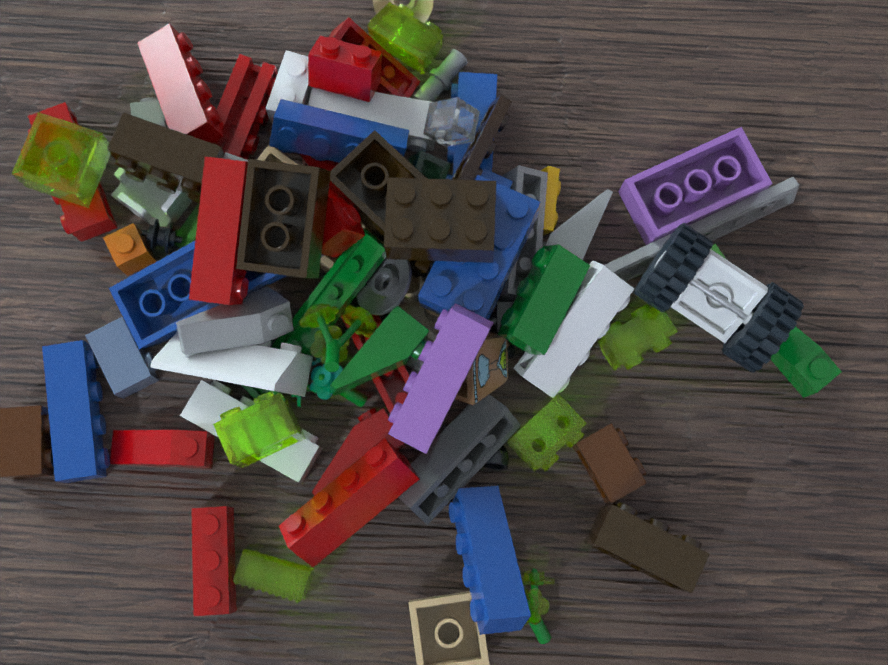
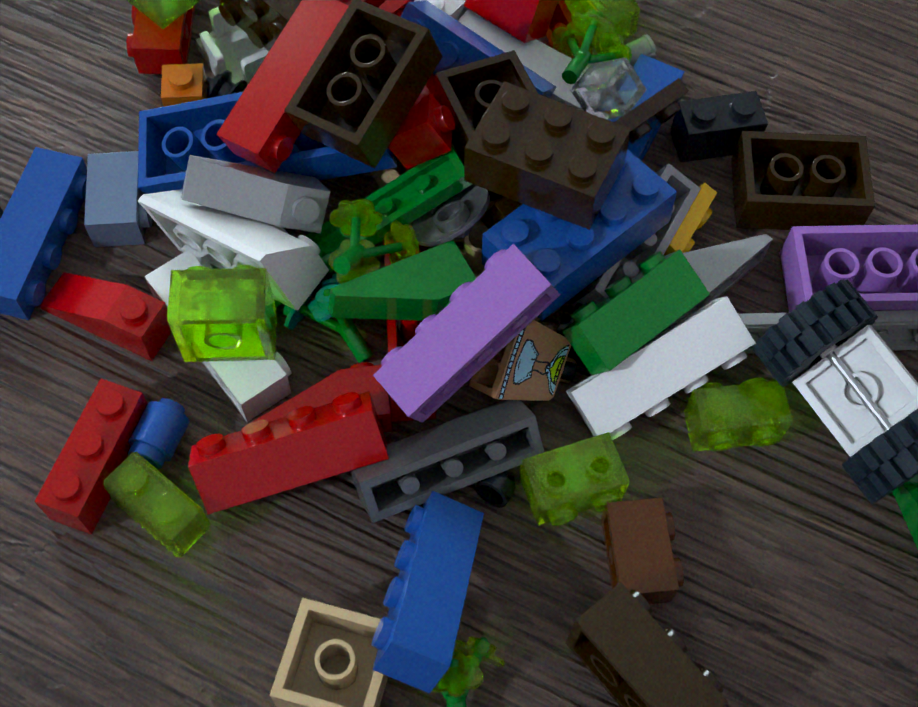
camera: 25 degrees right, 15 degrees down
(248, 523) = (159, 431): none -> blue brick
(410, 79) = (578, 38): none -> clear neon green plant
(539, 107) = (713, 124): none -> black brick
(615, 132) = (801, 180): none -> dark brown brick

